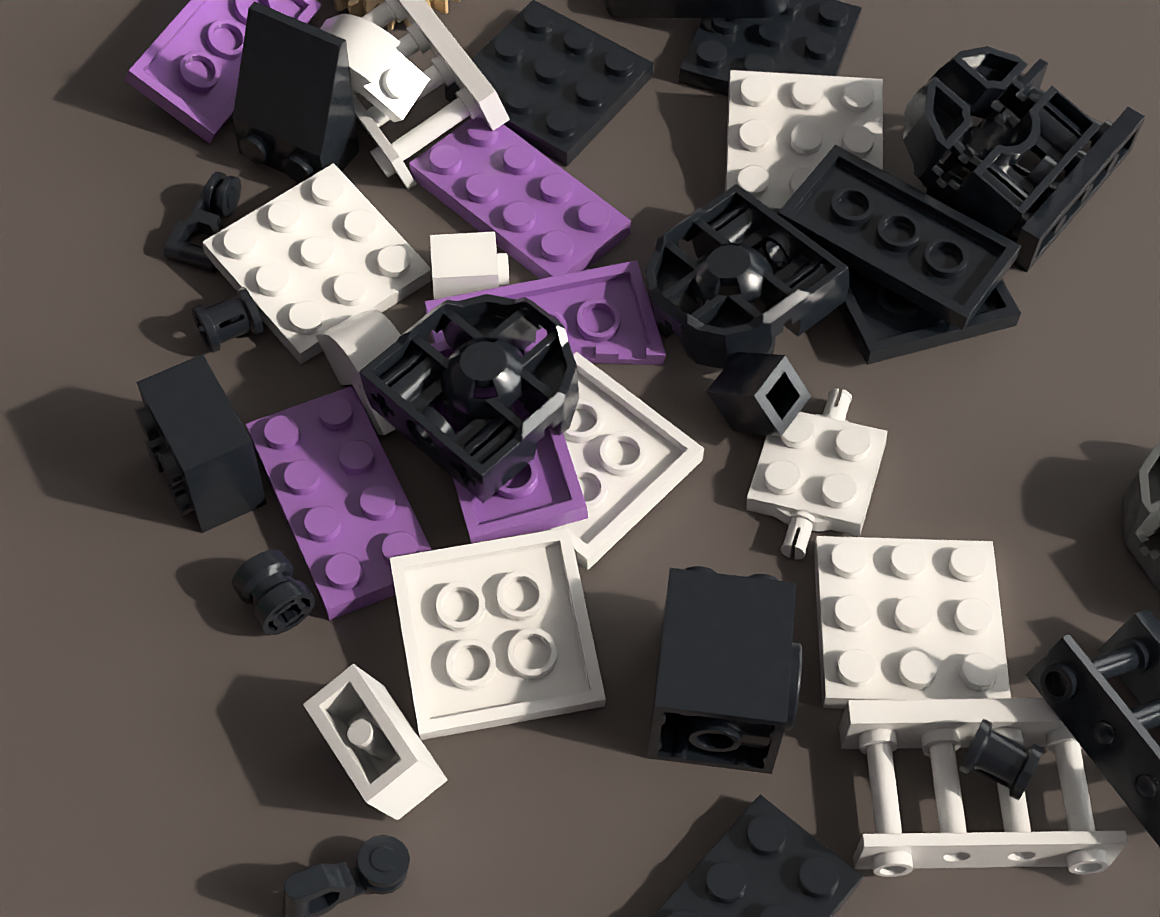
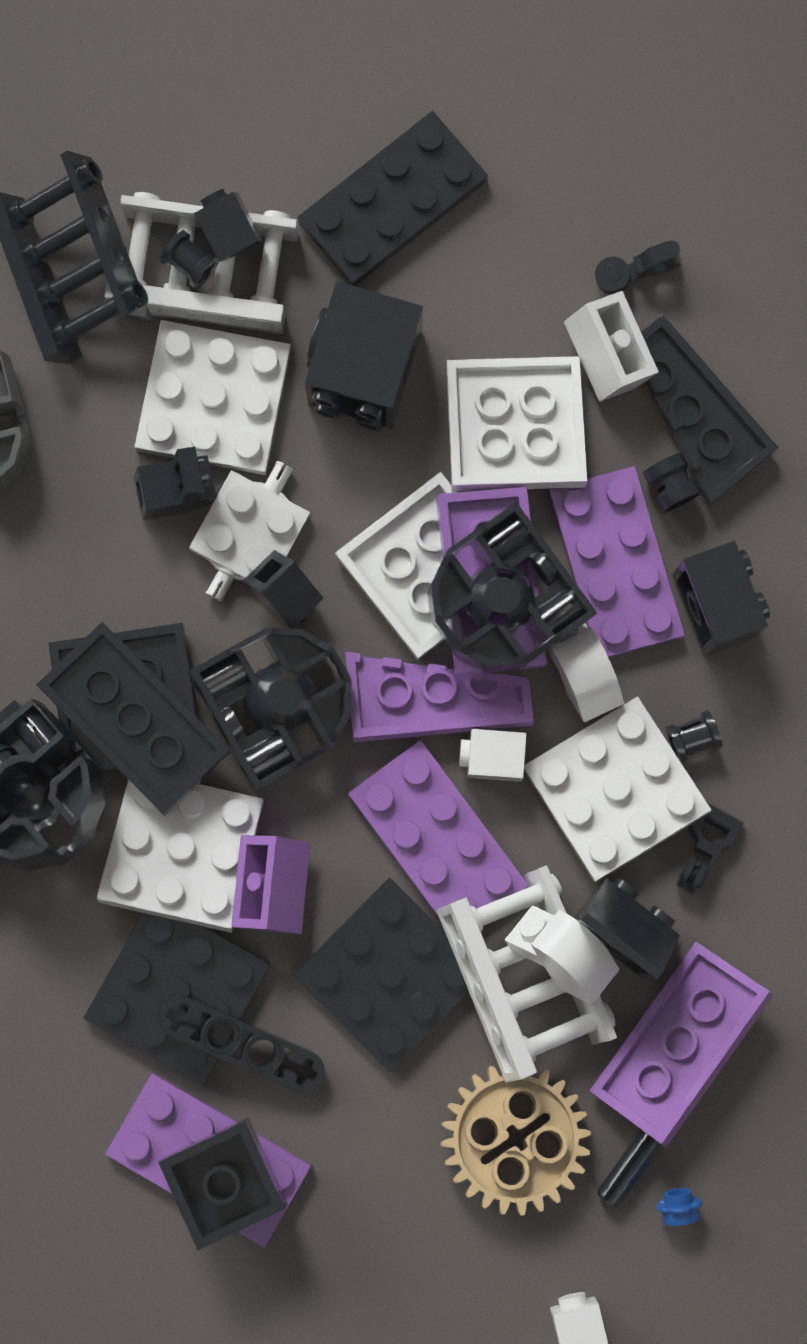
camera: 170 degrees left, 25 degrees up
(240, 691) = (702, 414): none -> black wing
(697, 118) = (271, 884): none -> medium lavender brick
(928, 492) = (174, 485): none -> black brick
(961, 802) = (227, 224): none -> black brick

